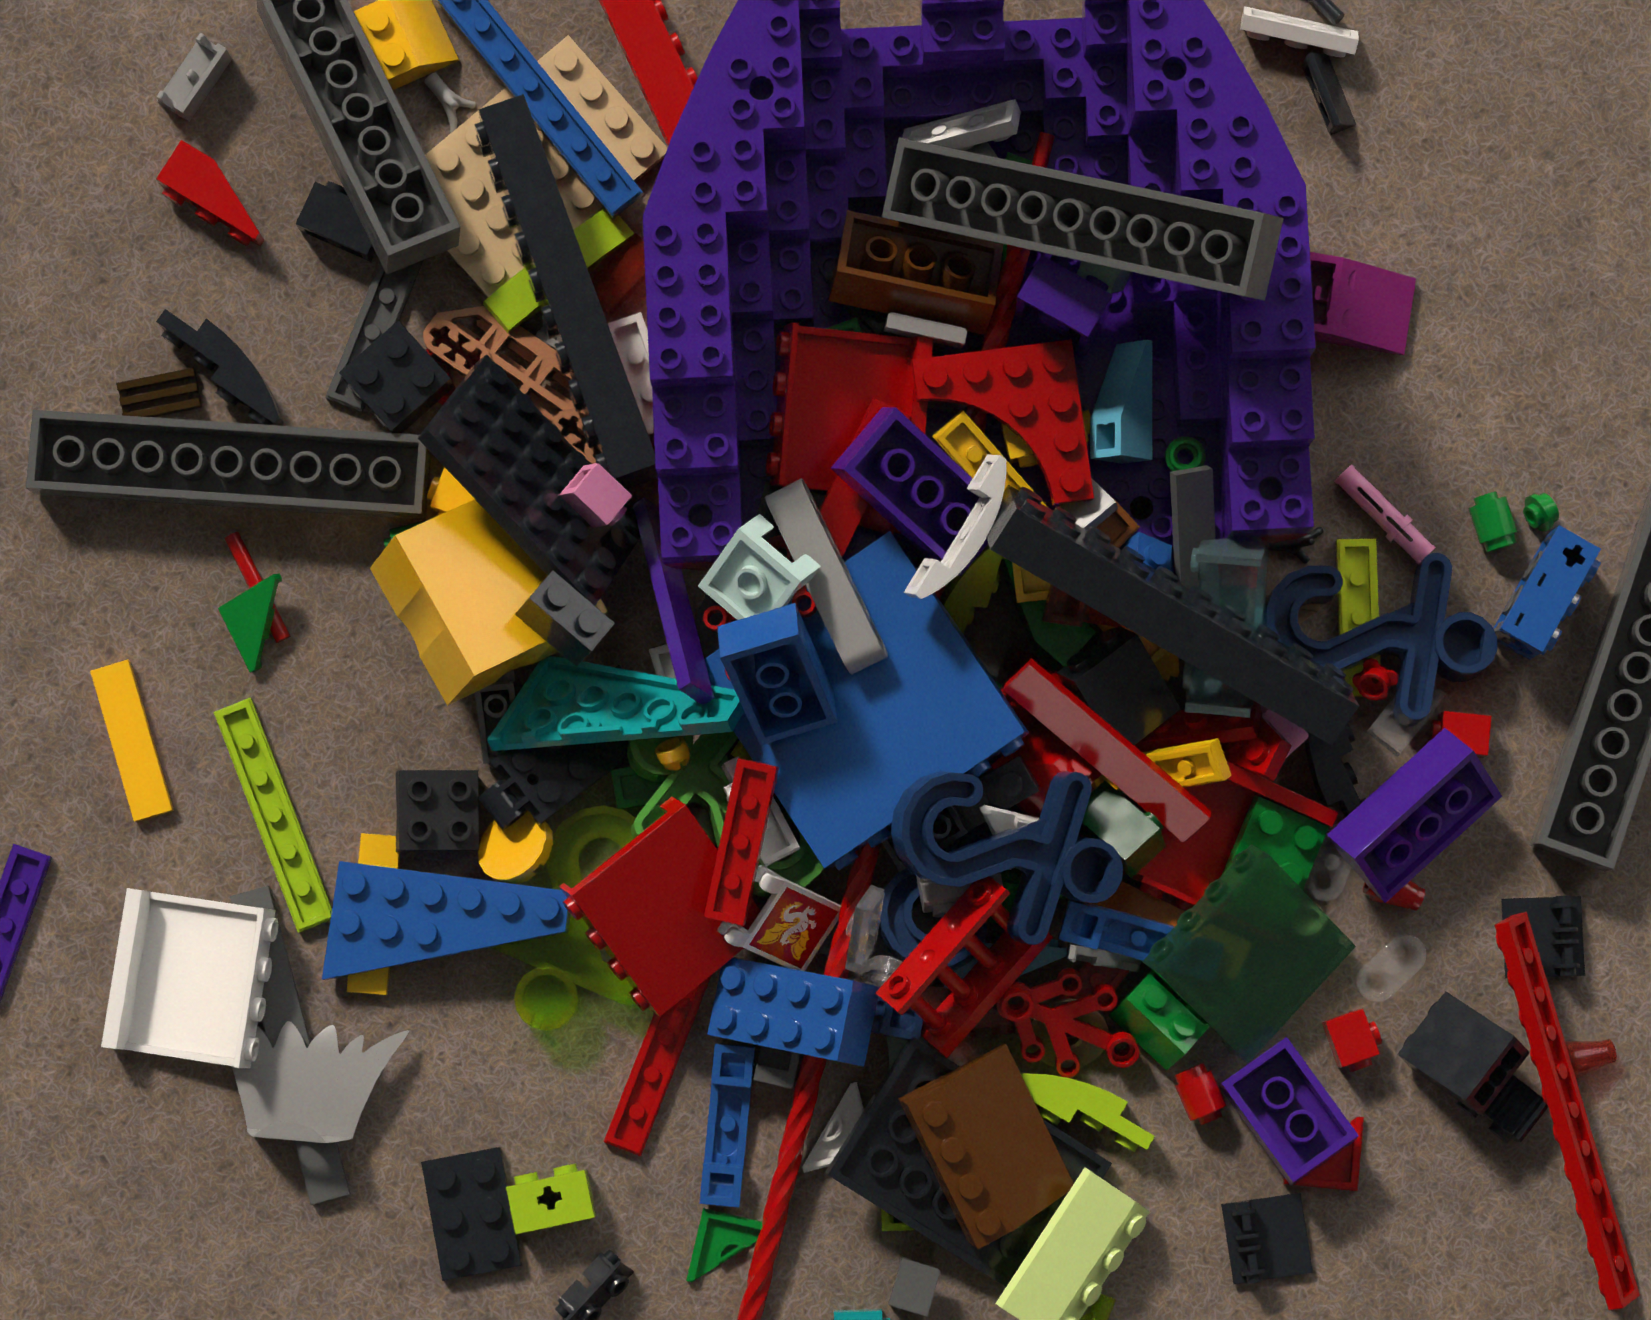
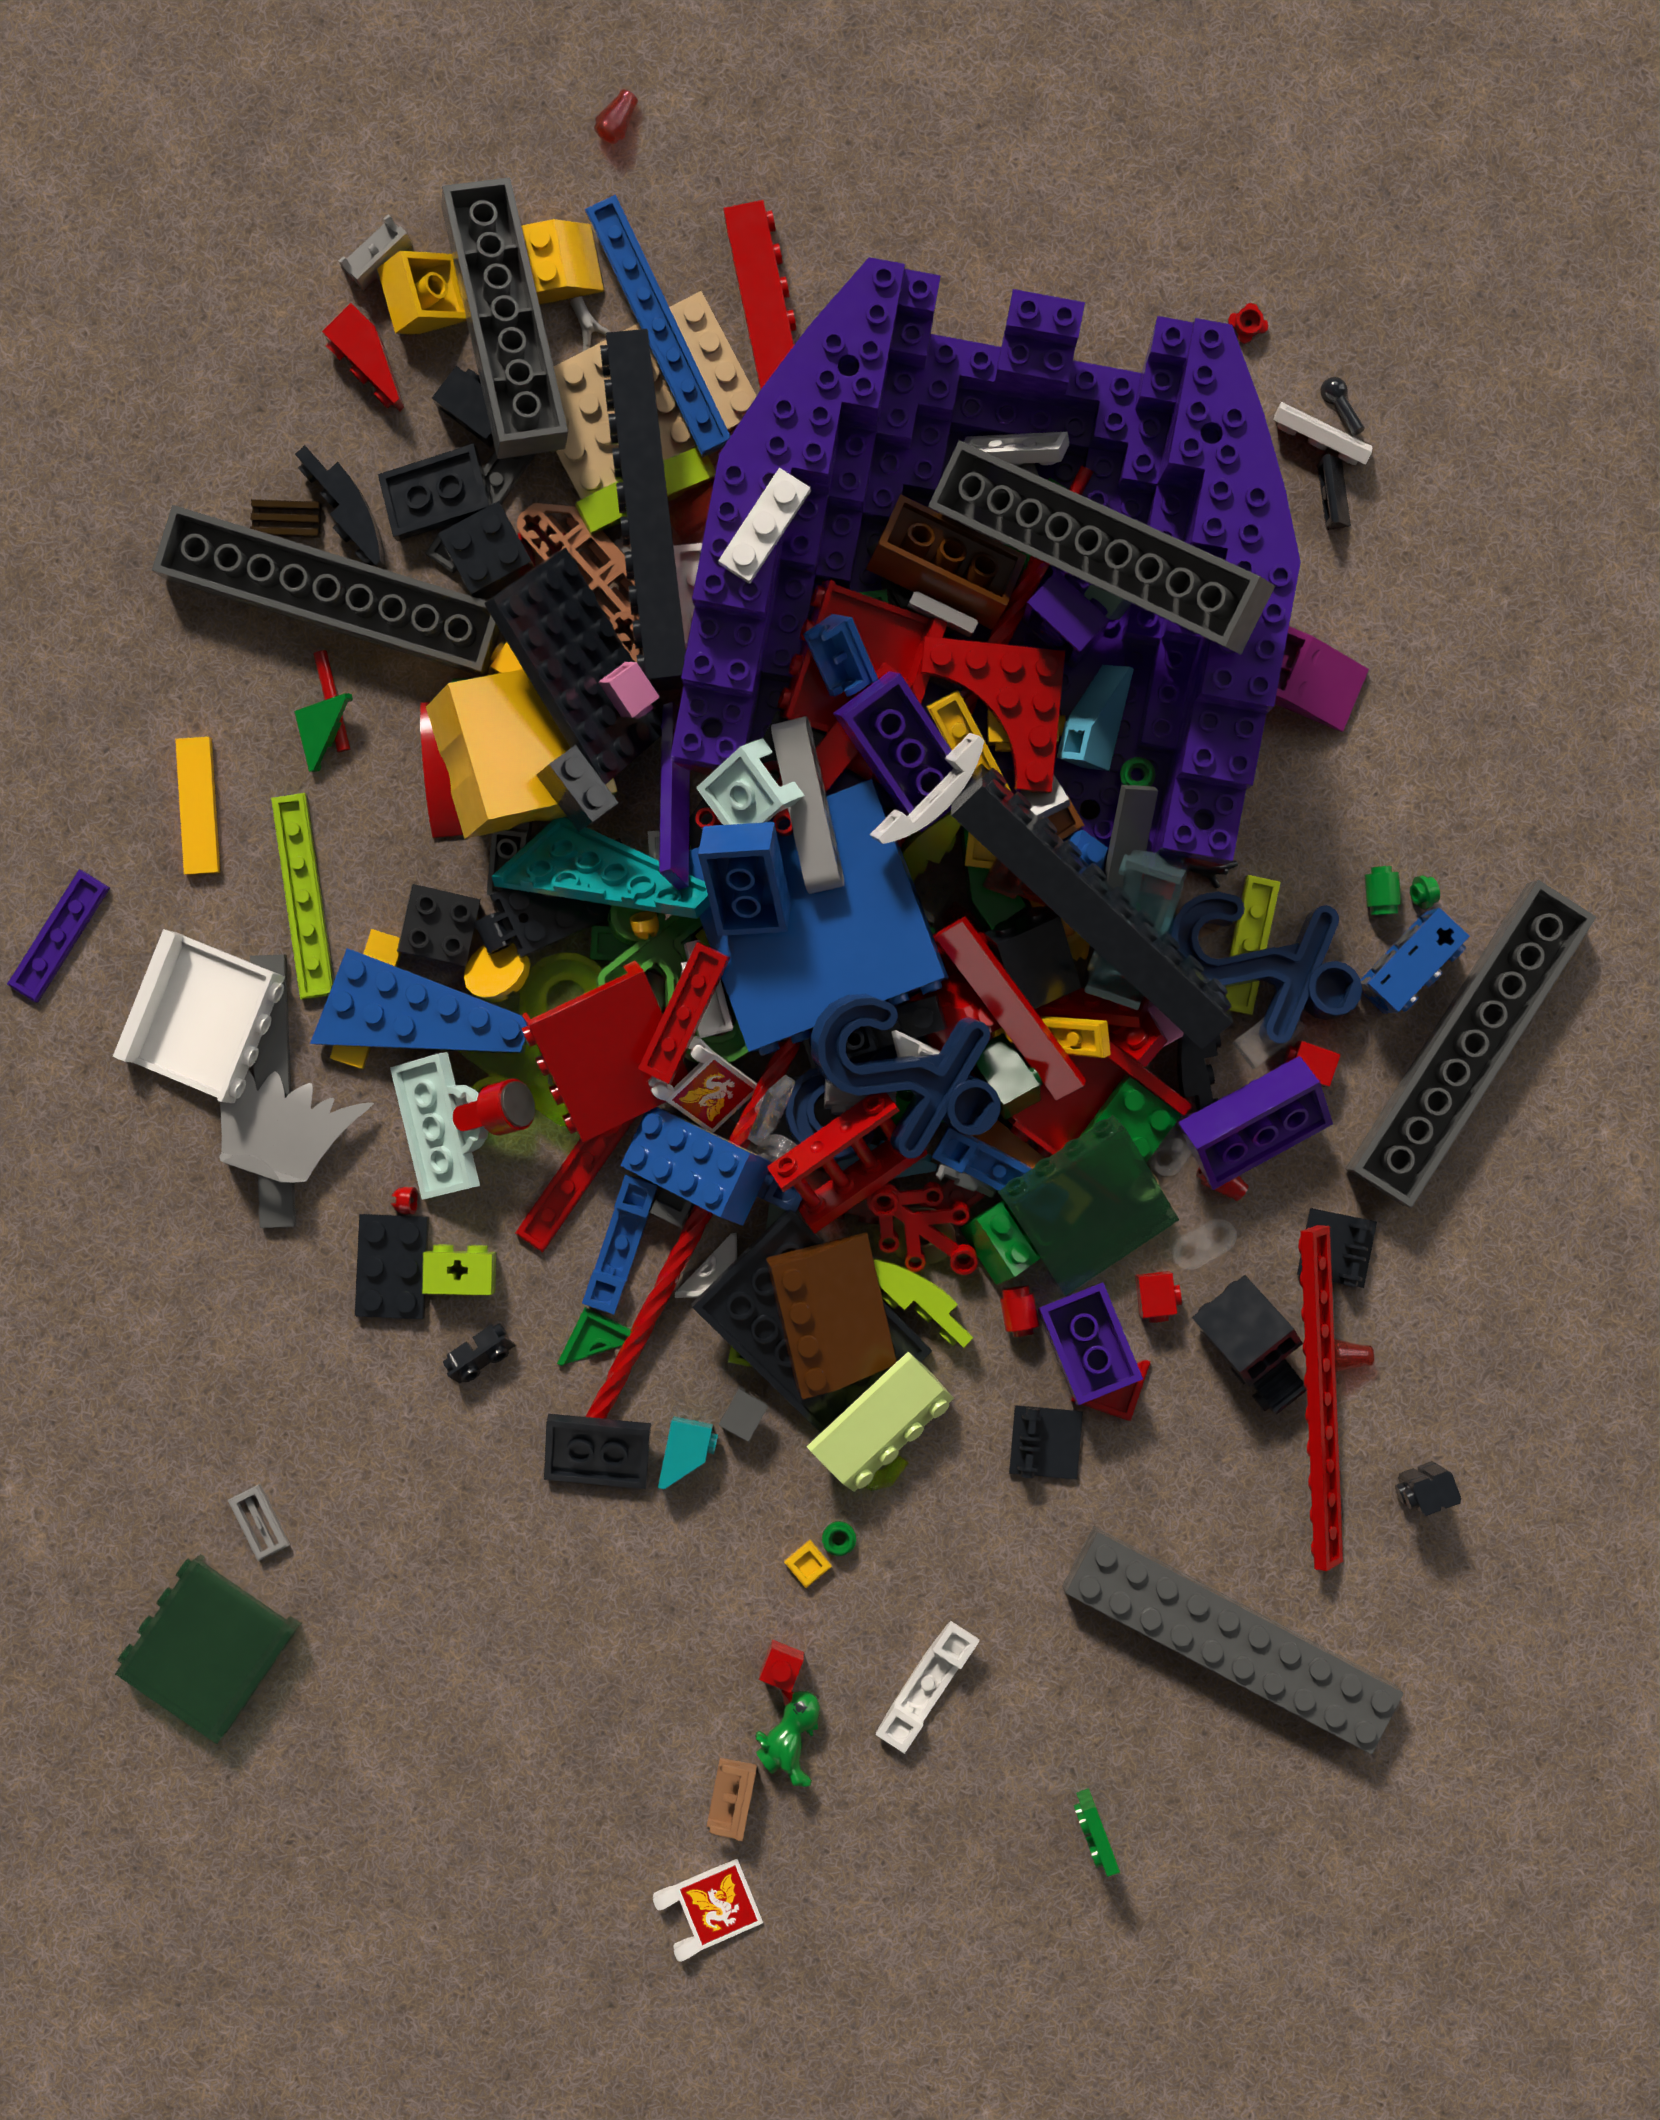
camera: 10 degrees right, 5 degrees up
(256, 108) = (421, 291): none -> yellow slope
(321, 327) = (434, 492): none -> black plate
(407, 669) = (440, 804): none -> red slope
(469, 1138) = (402, 1202): none -> red hinge
(504, 1029) = (453, 1120): none -> light aqua plate
(711, 282) = (764, 525): none -> white plate
(824, 402) = (840, 655): none -> blue hinge
(1372, 688) = (1245, 1006): red plate -> none
(1419, 548) = (1314, 898): bright pink pin -> none

